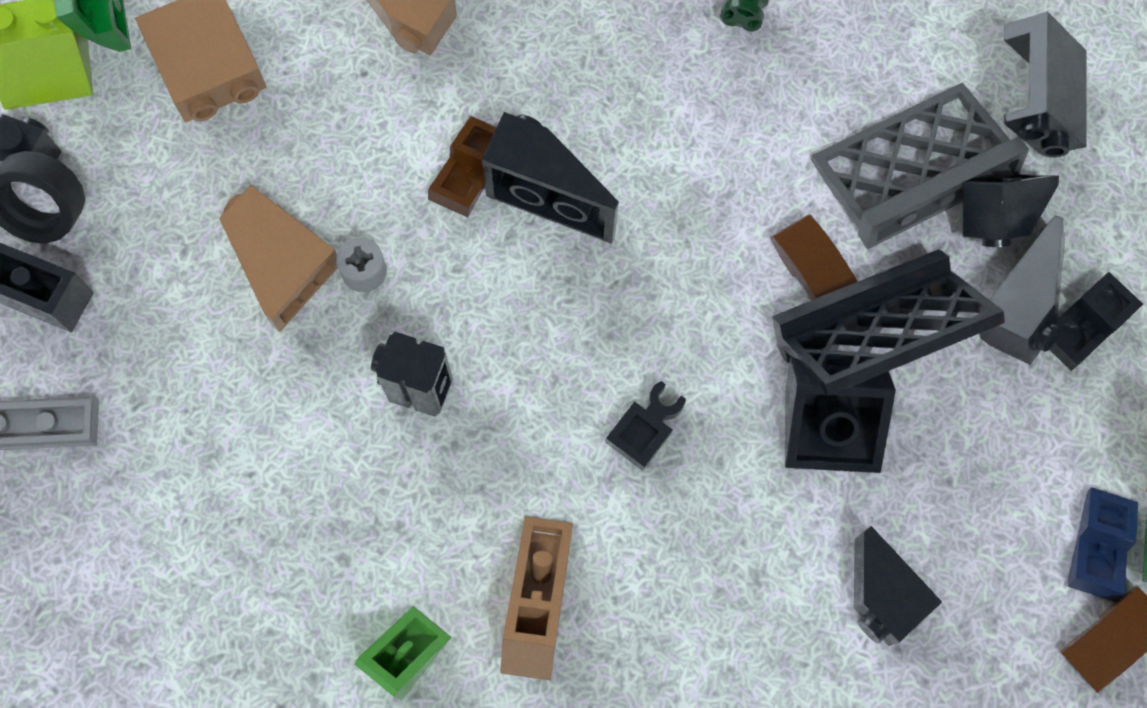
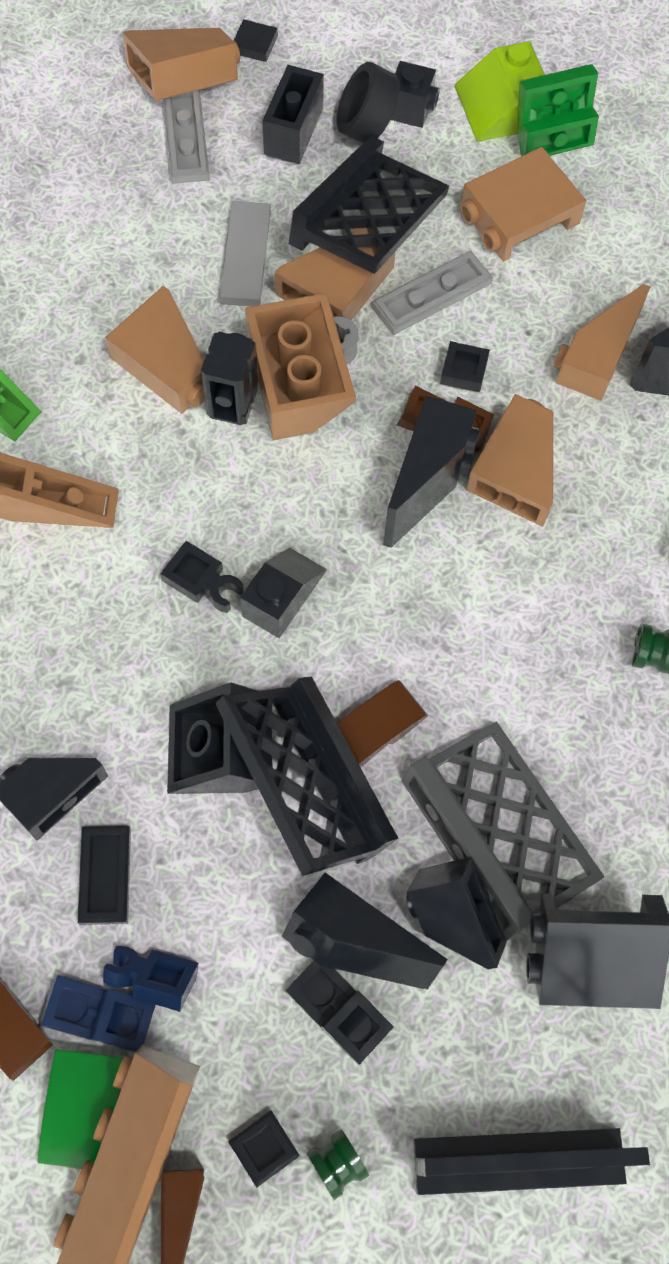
camera: 85 degrees right, 5 degrees down
(177, 243) = (343, 192): none -> black fence
(219, 360) = (245, 254): none -> light grey tile
(302, 163) = (432, 292): none -> light grey tile
(357, 455) = (160, 351): none -> medium nougat slope
(401, 290) = (299, 364): none -> medium nougat slope
(407, 137) = (464, 366): none -> black plate
(533, 87) = (518, 462): none -> medium nougat slope
(667, 341) = (280, 591): none -> black slope
(967, 536) = (104, 875): none -> black tile
(1072, 479) = (156, 980): none -> dark blue plate

